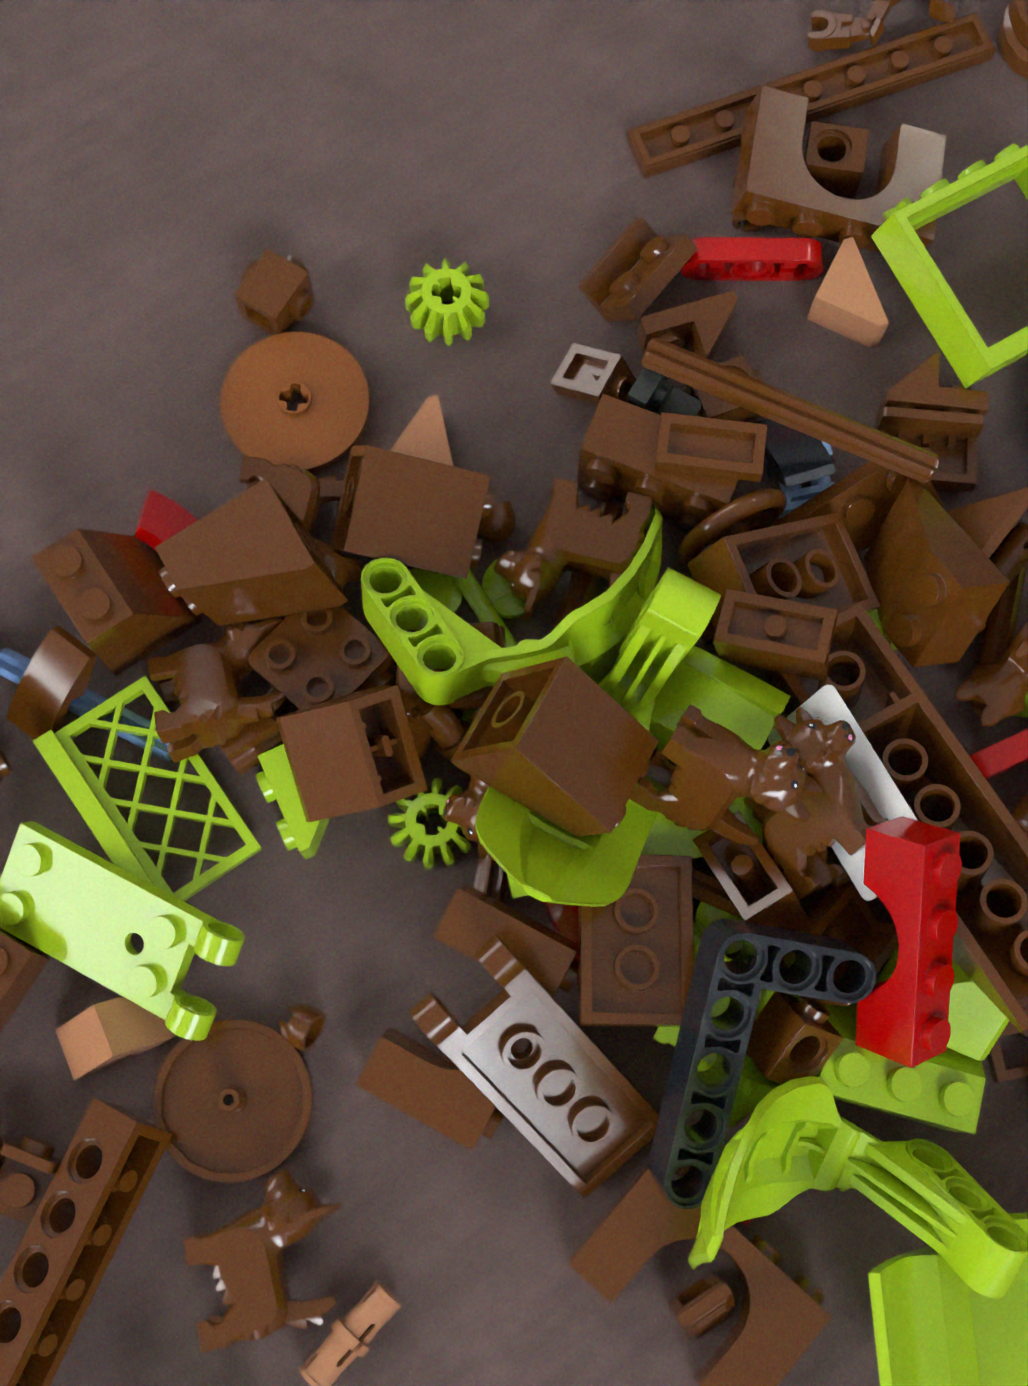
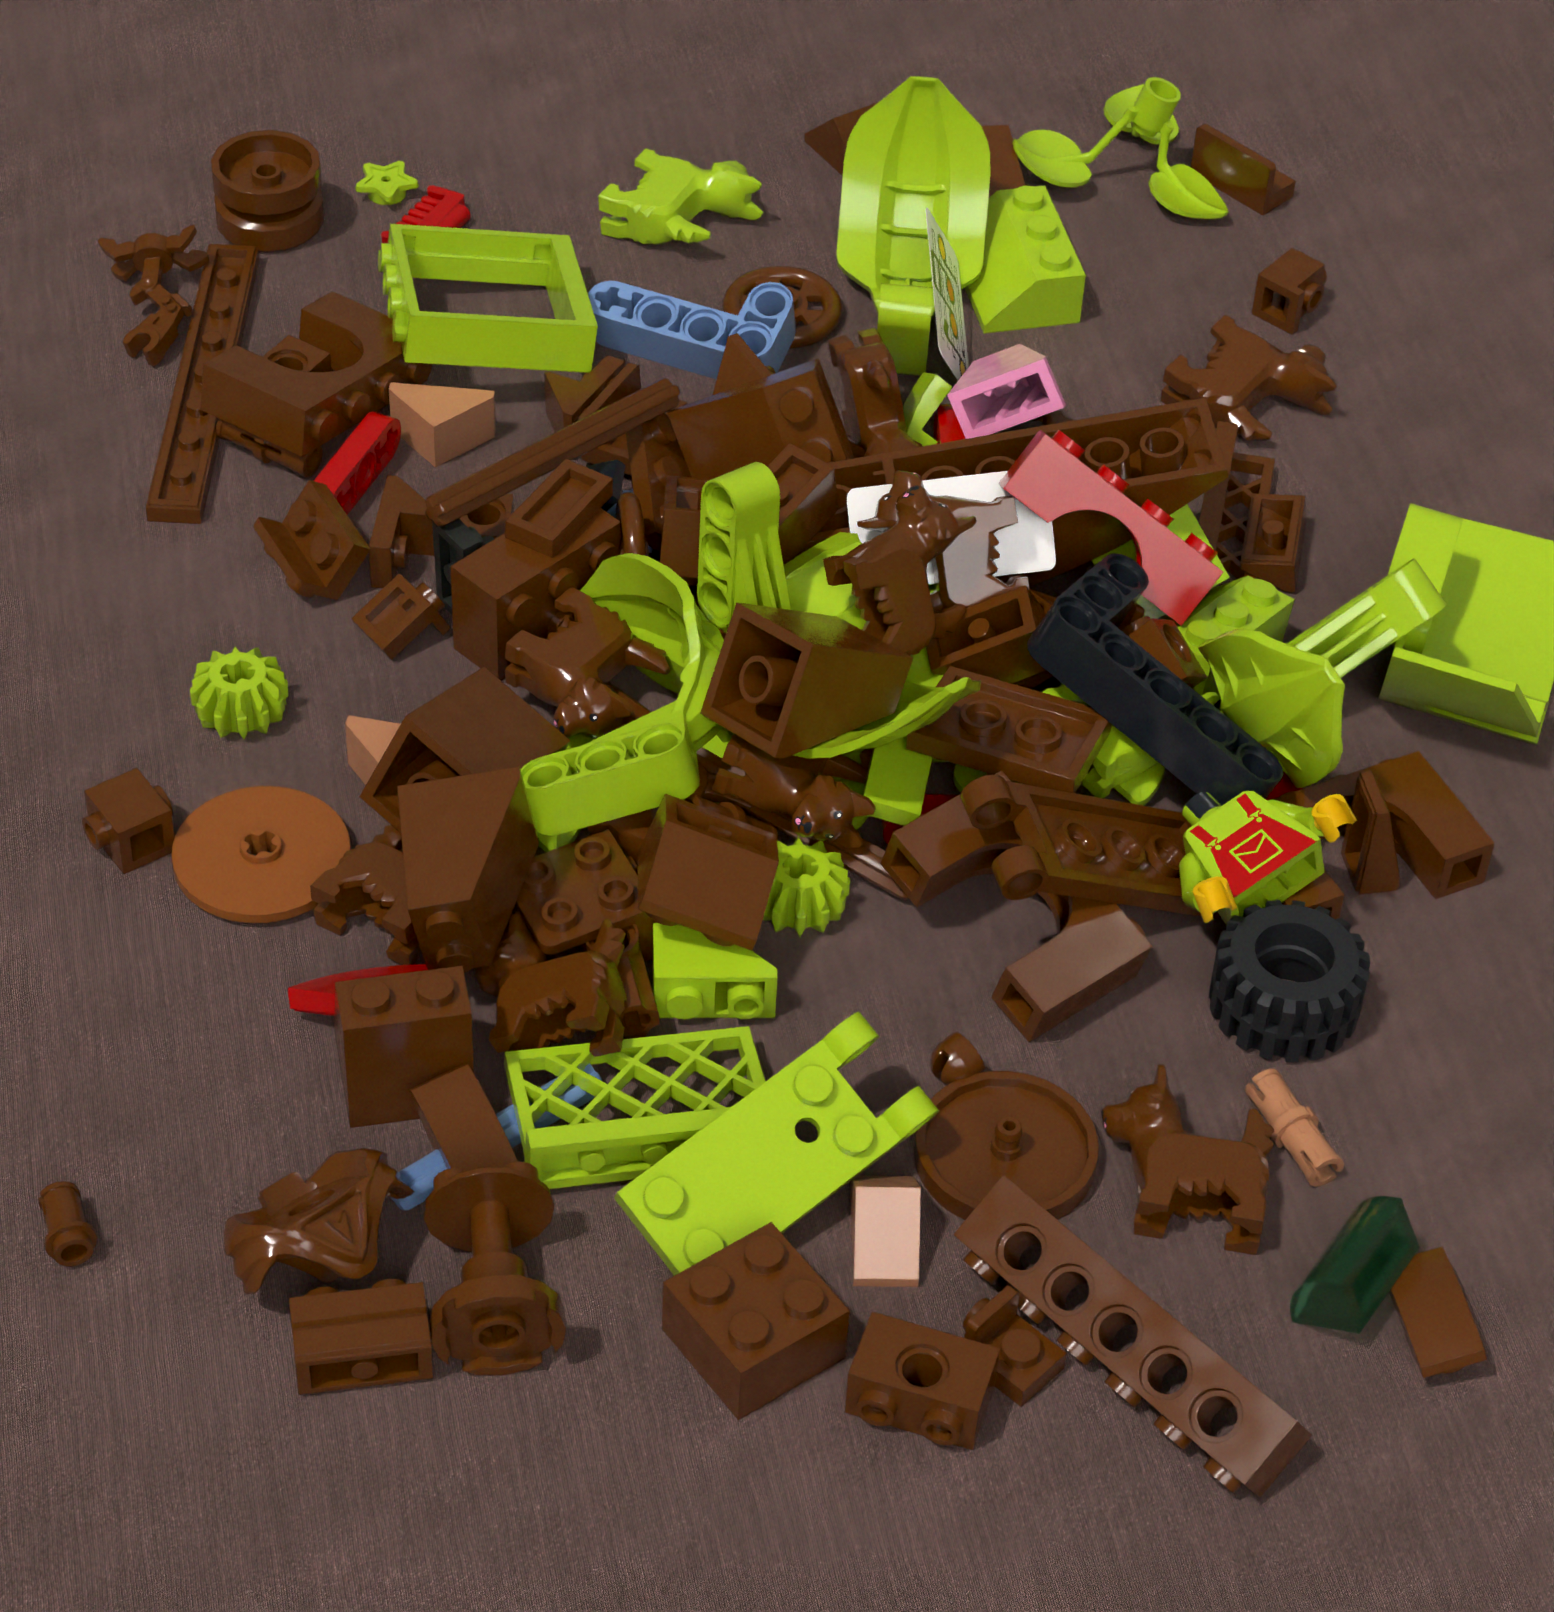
camera: 70 degrees left, 30 degrees down
(498, 1335) = (1283, 1014): none -> black tyre
(591, 1205) = (1253, 850): none -> torso

